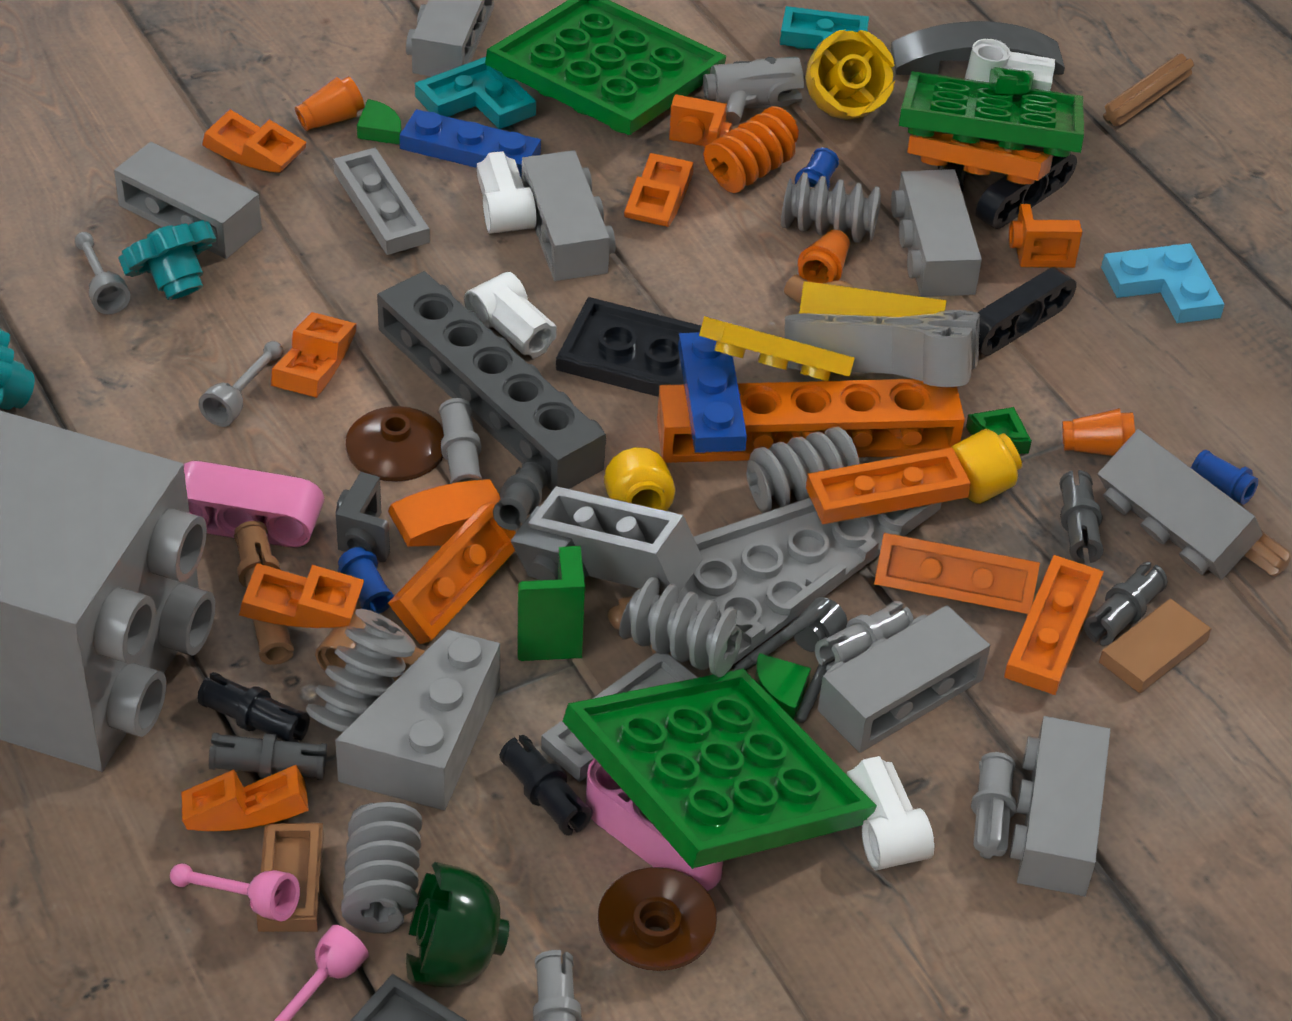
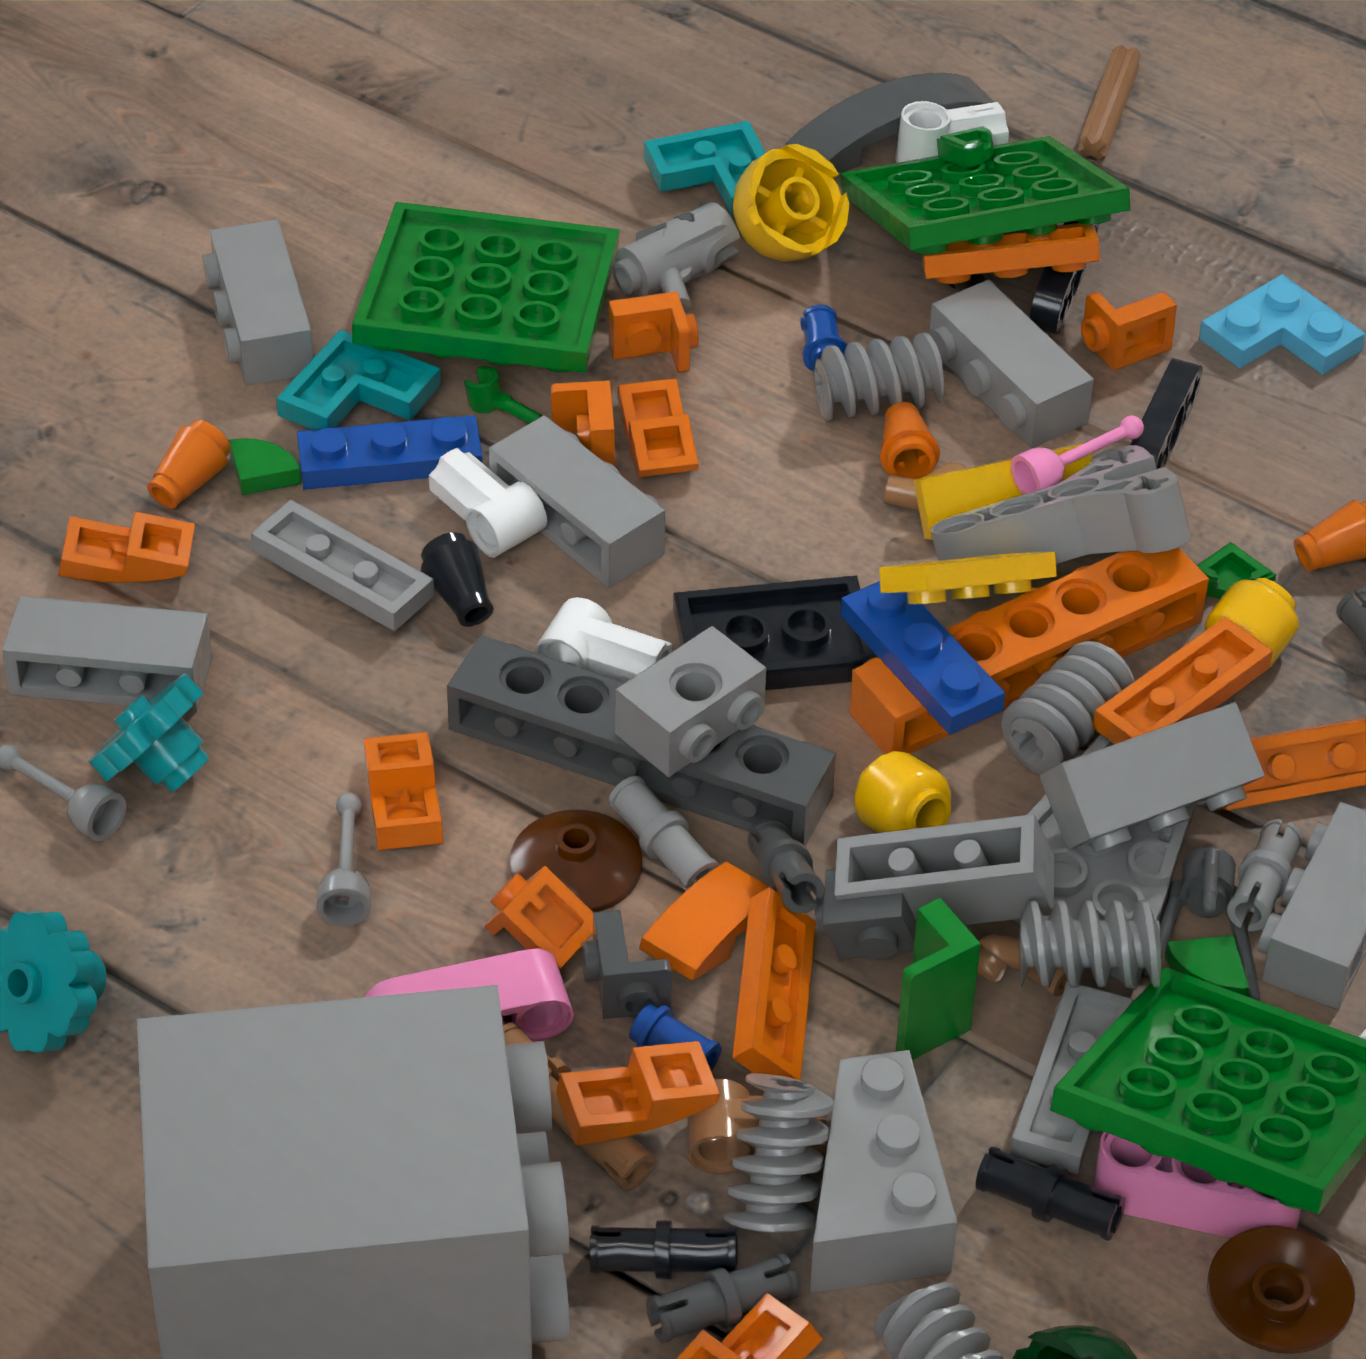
camera: 25 degrees left, 0 degrees up
(333, 462) = (542, 915): none -> orange bracket
(450, 232) = (458, 577): none -> black cone
(520, 359) = (690, 701): none -> light grey brick
(564, 133) = (489, 397): none -> green hand
(613, 168) = (588, 412): none -> orange bracket
(752, 149) = (737, 337): orange piece -> none
(812, 533) = (1152, 779): none -> light grey brick
(897, 302) = (1044, 468): none -> bright pink hinge

